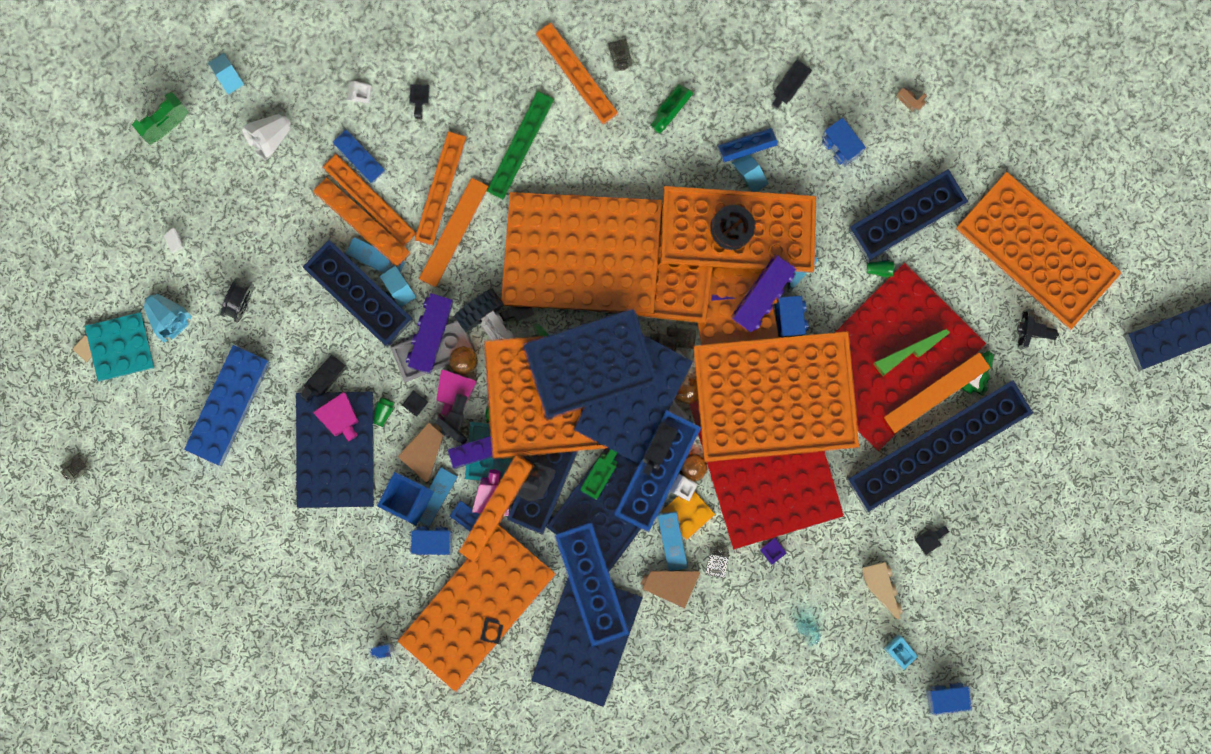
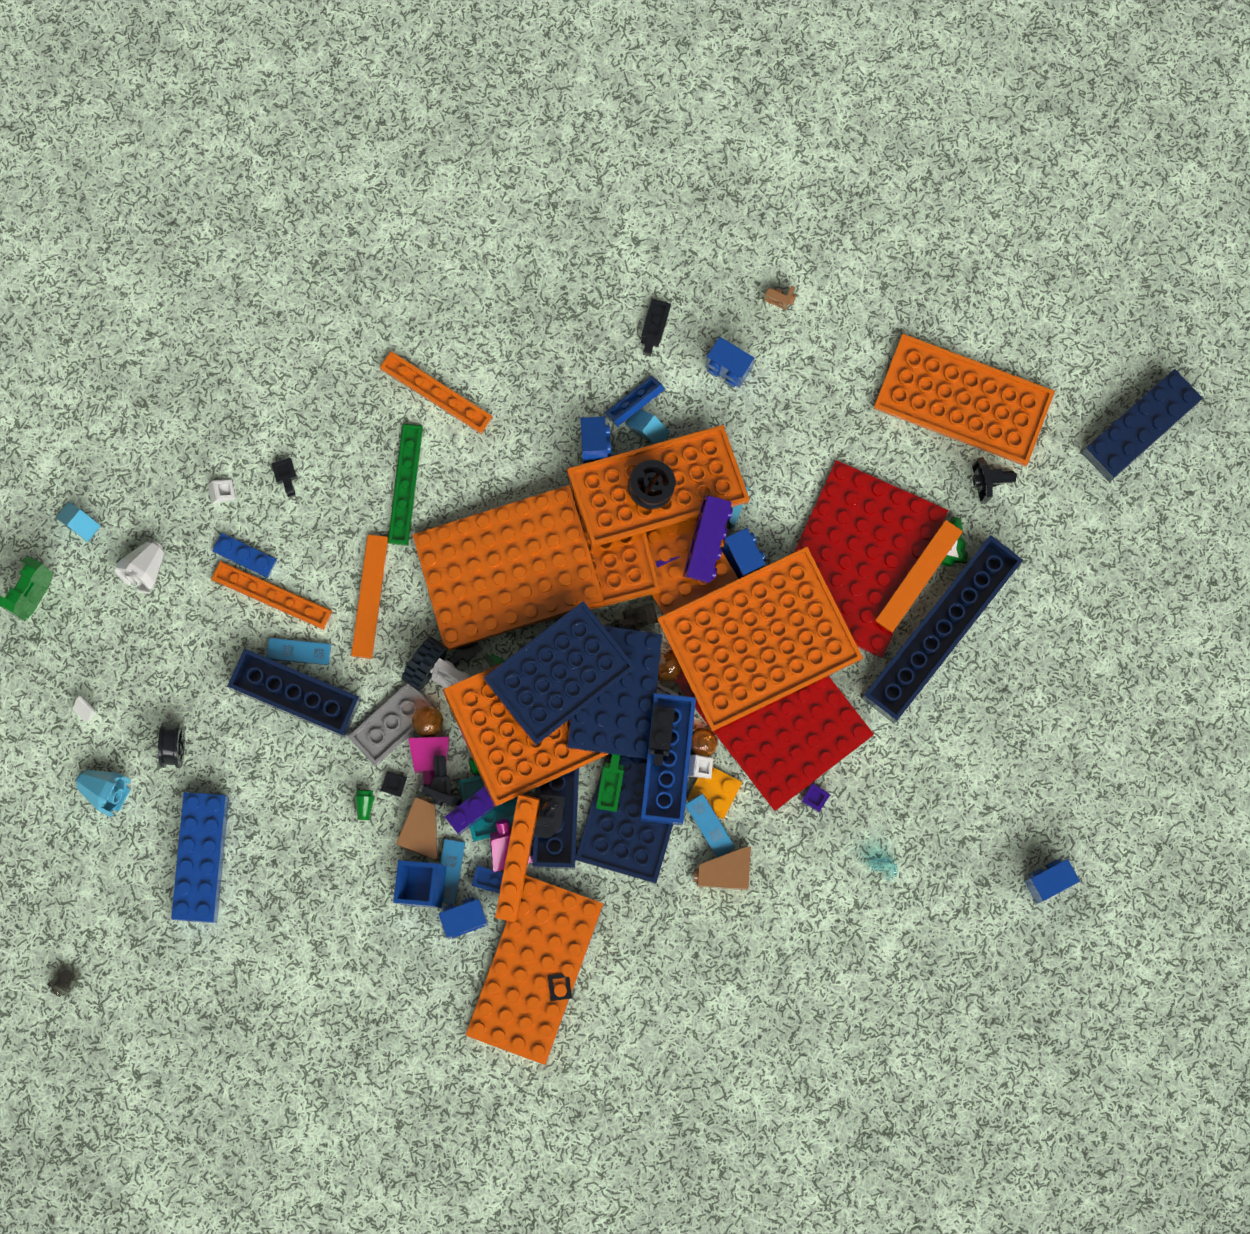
camera: 25 degrees left, 5 degrees down
(83, 349) = (32, 854): tan tile -> none
(119, 347) = (66, 839): teal plate -> none
(323, 378) = (289, 793): black hinge -> none
(329, 466) = (328, 862): dark blue plate -> none
(339, 416) = (320, 825): dark pink torso -> none
(361, 222) = (271, 620): orange plate -> none
(382, 651) = (454, 1050): blue plate -> none
(397, 286) = (332, 671): medium azure slope -> none
(430, 333) = (383, 706): dark purple brick -> none
(440, 188) = (340, 557): orange plate -> none
(570, 660) = (659, 959): dark blue plate -> none
(591, 584) = (644, 899): blue brick -> none
(620, 55) = (473, 358): clear smoke bracket -> none
(671, 108) = (543, 392): green hinge -> none
(699, 168) = (595, 439): none -> blue piece
(717, 561) = (763, 829): clear smoke bracket -> none
(878, 582) = (936, 791): tan slope -> none
(881, 268) = (815, 474): green cone -> none
(886, 364) = (883, 540): bright green slope -> none
(900, 652) = (983, 851): medium azure slope -> none
(908, 215) = (821, 411): dark blue brick -> none
(929, 541) = (968, 727): black plate -> none

